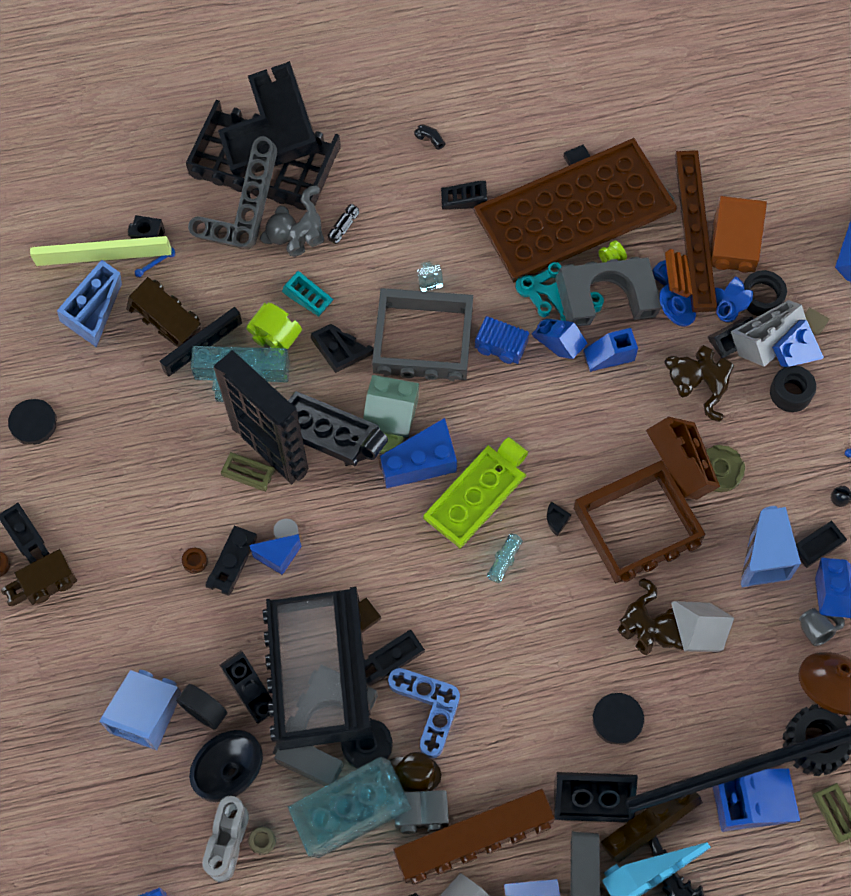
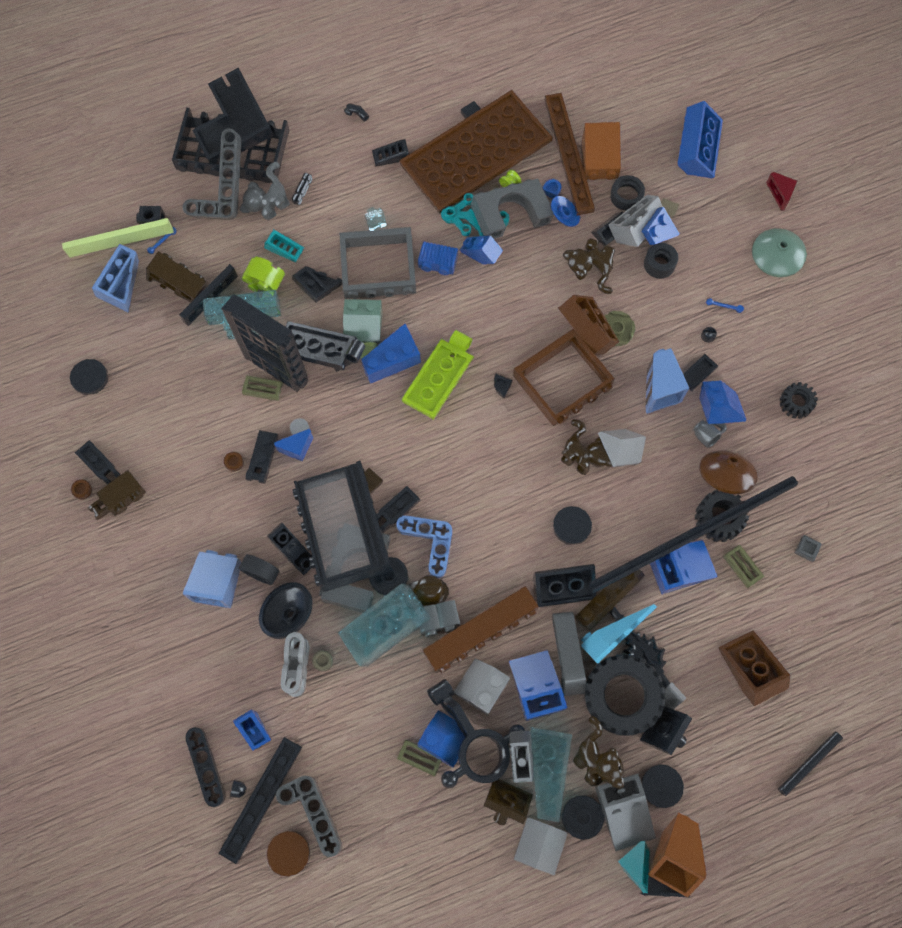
camera: 10 degrees left, 5 degrees up
(504, 558) = (468, 421): clear light blue pin -> none
(611, 350) = (522, 252): blue slope -> none
(678, 273) = (562, 187): dark orange tile -> none
(732, 298) = (605, 199): blue plate -> none

